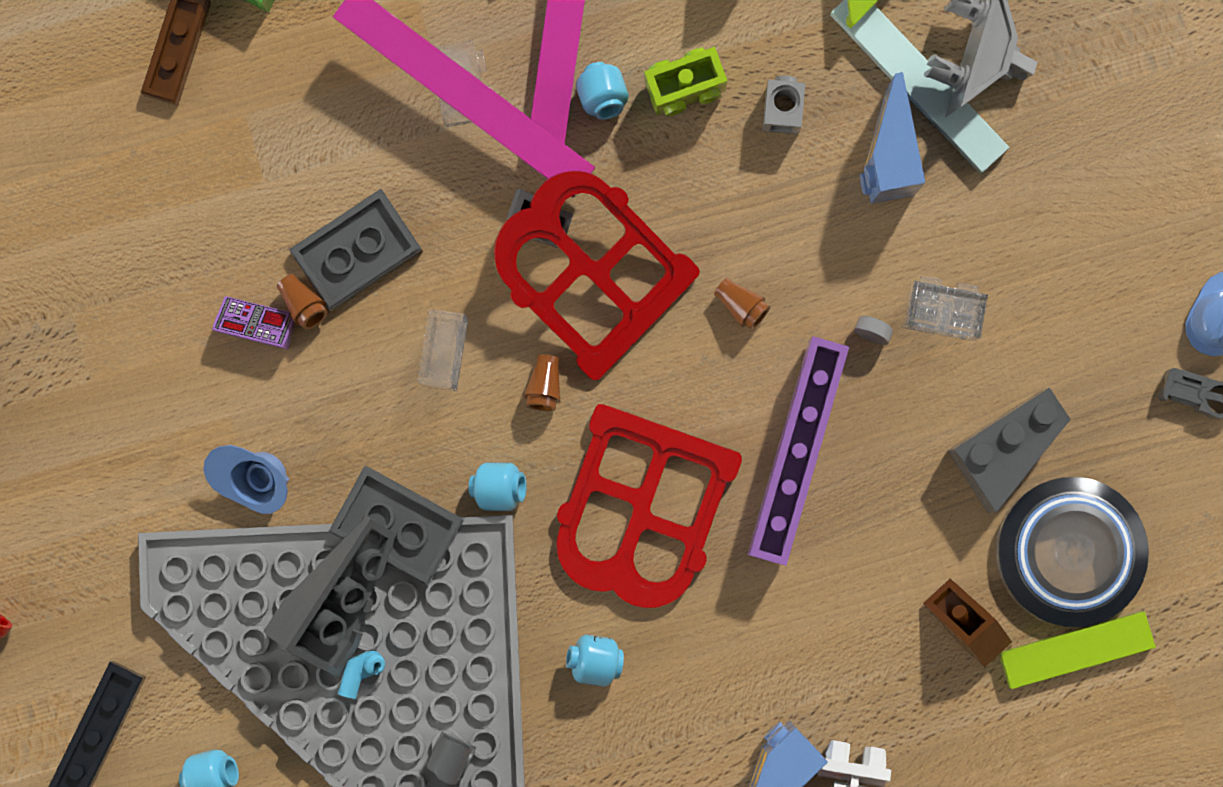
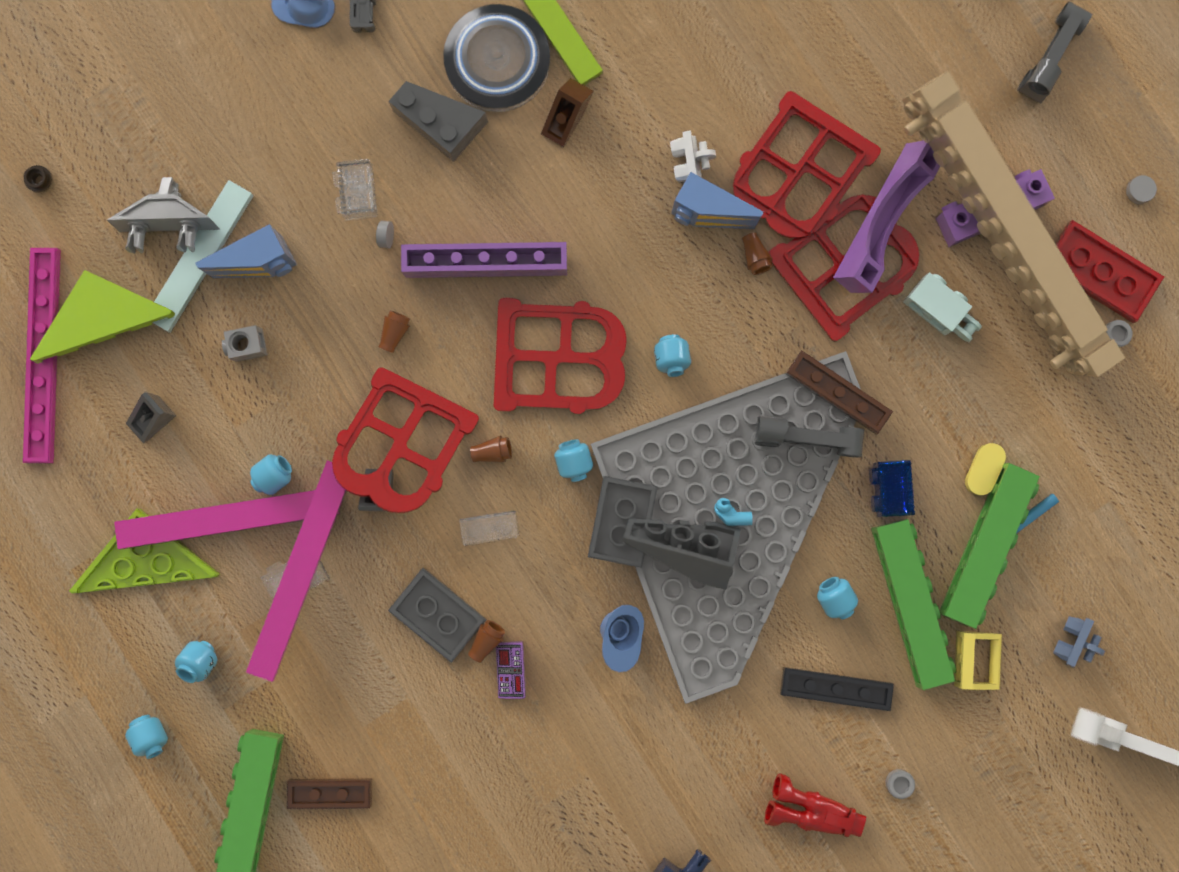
camera: 115 degrees left, 0 degrees up
(685, 81) = (243, 412): lime brick -> none

